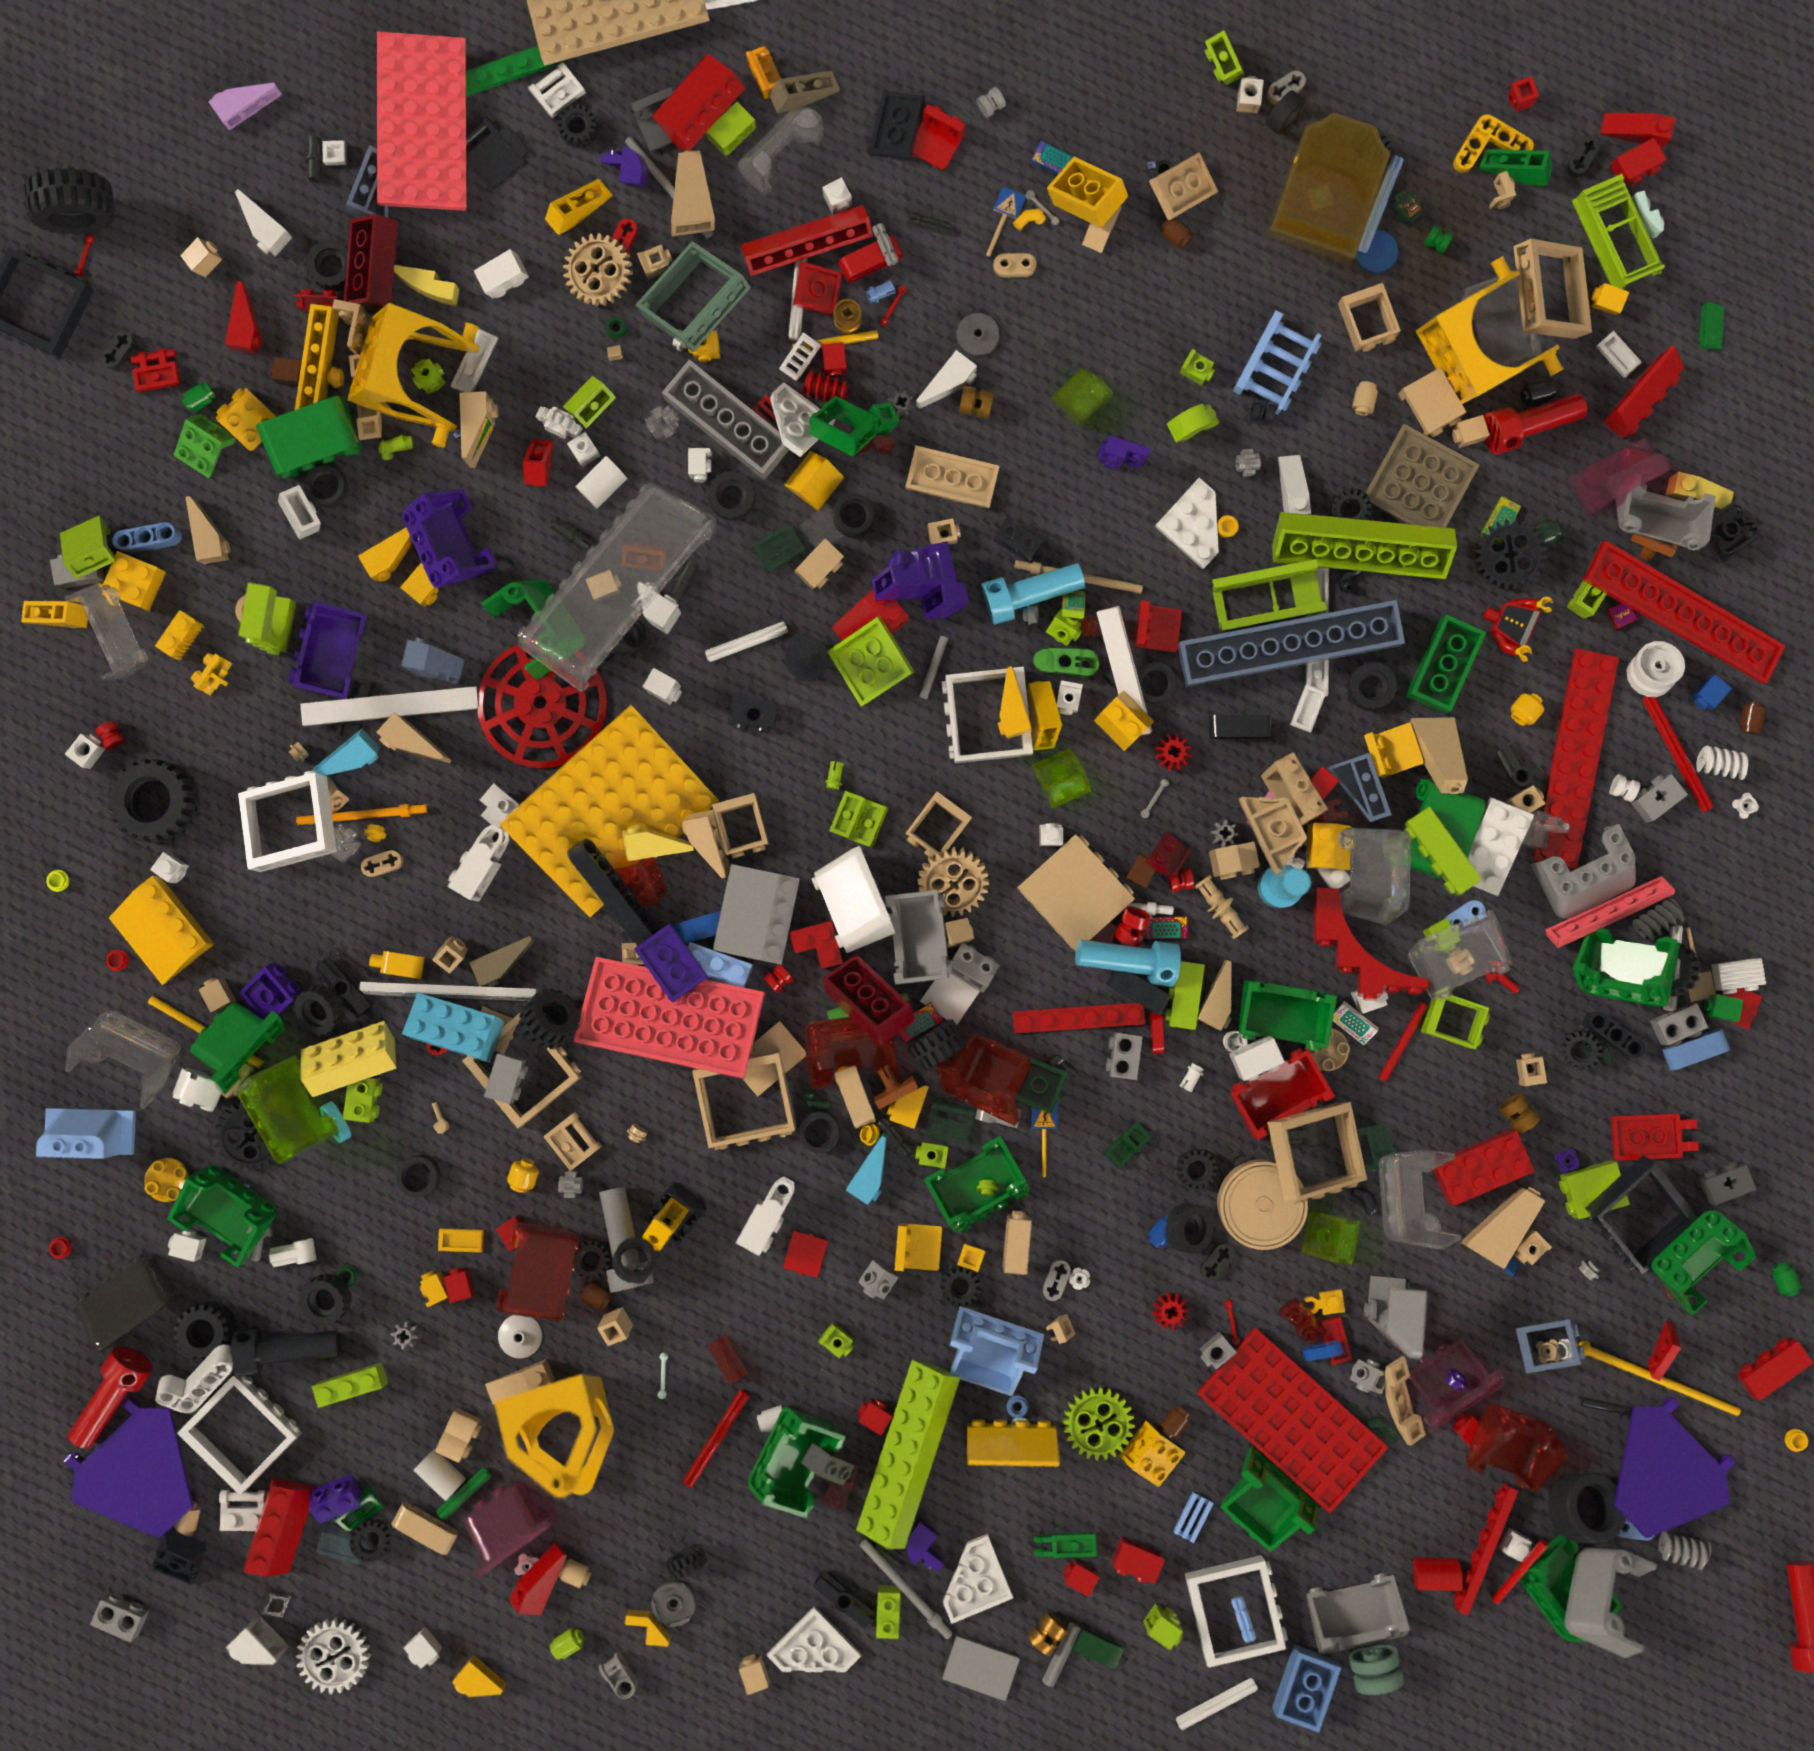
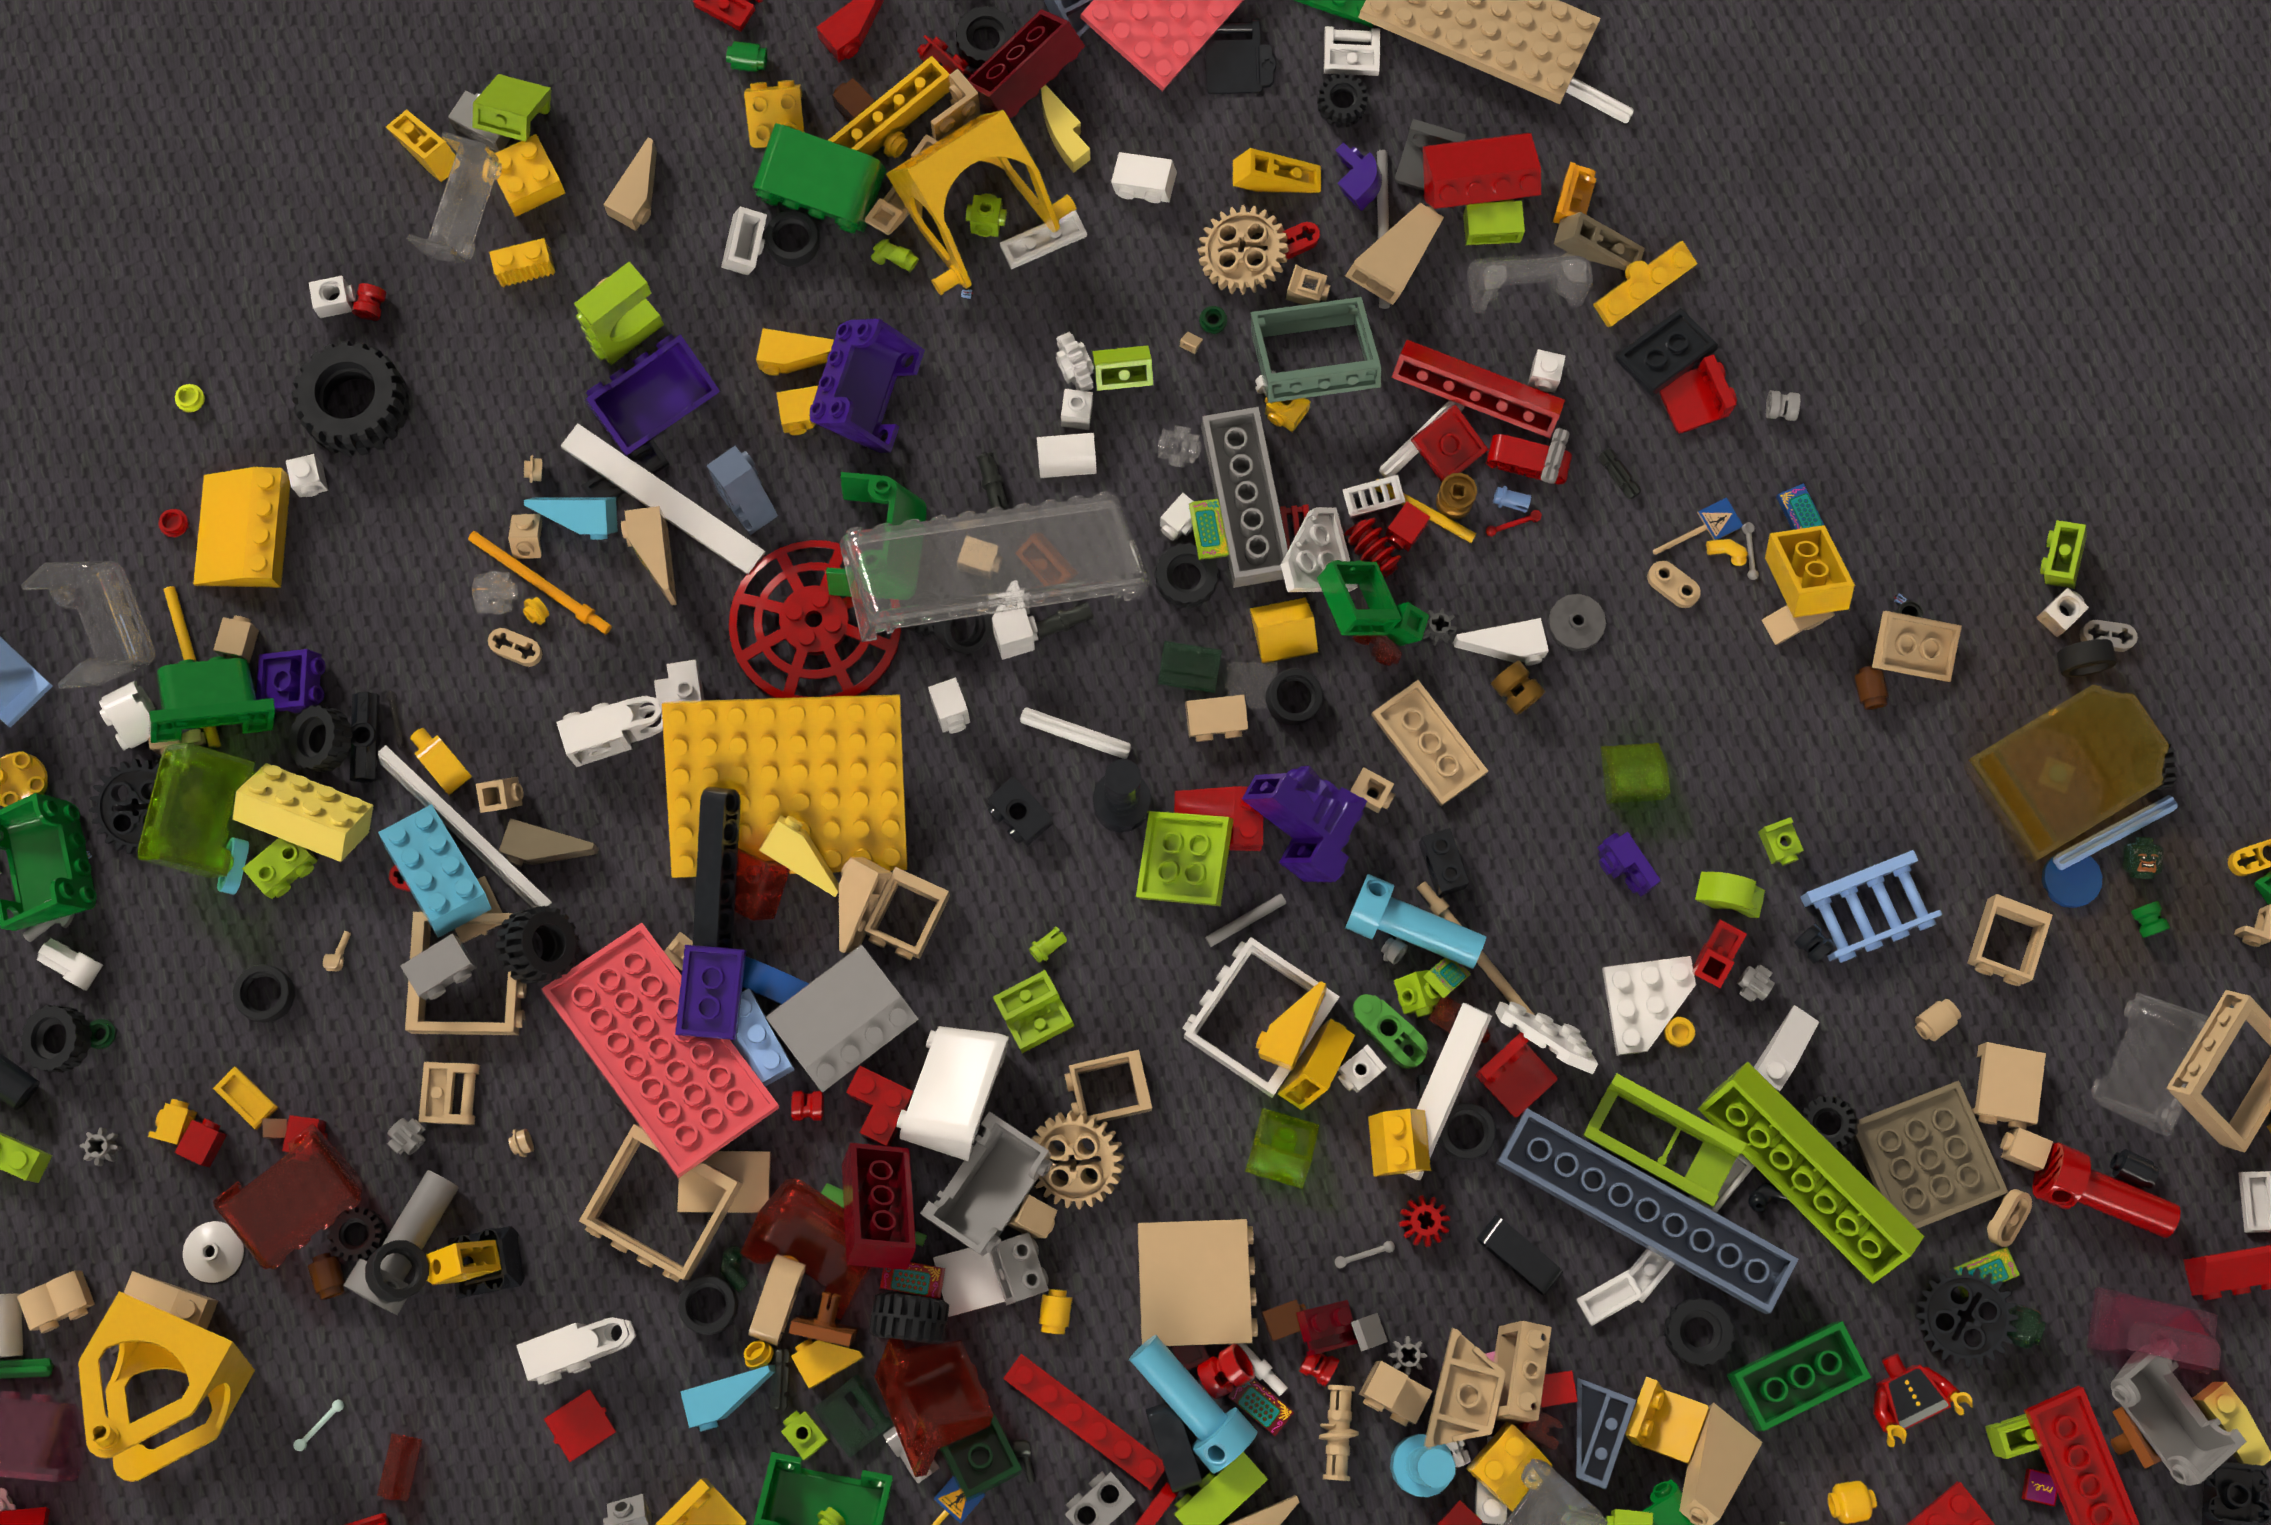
camera: 35 degrees right, 10 degrees down
(137, 536) = (570, 136): medium blue beam -> none
(202, 443) = (710, 101): bright green bracket -> none
(212, 675) = (519, 326): yellow hips -> none
(323, 820) = (494, 554): white window -> none
(477, 423) = (991, 298): tan slope -> none
(492, 1242) = (274, 1128): none -> tan piece
(522, 1175) = (367, 1084): yellow head -> none
(538, 462) = (1020, 385): red slope -> none
(615, 1326) = (316, 1327): tan brick -> none
(722, 457) = (1208, 529): none -> tile
(849, 92) = (1644, 282): none -> yellow hinge
(1012, 973) = (1055, 1311): none -> yellow brick
(1051, 835) = (1220, 1198): white brick -> none
(1154, 590) = (1540, 1029): none -> white plate
(1192, 838) = (1369, 1332): none -> light grey tile
(1213, 465) = (1718, 953): none -> red brick
(1454, 350) = (2073, 1043): yellow piece -> none
(1491, 478) = (2009, 1218): none -> tan plate

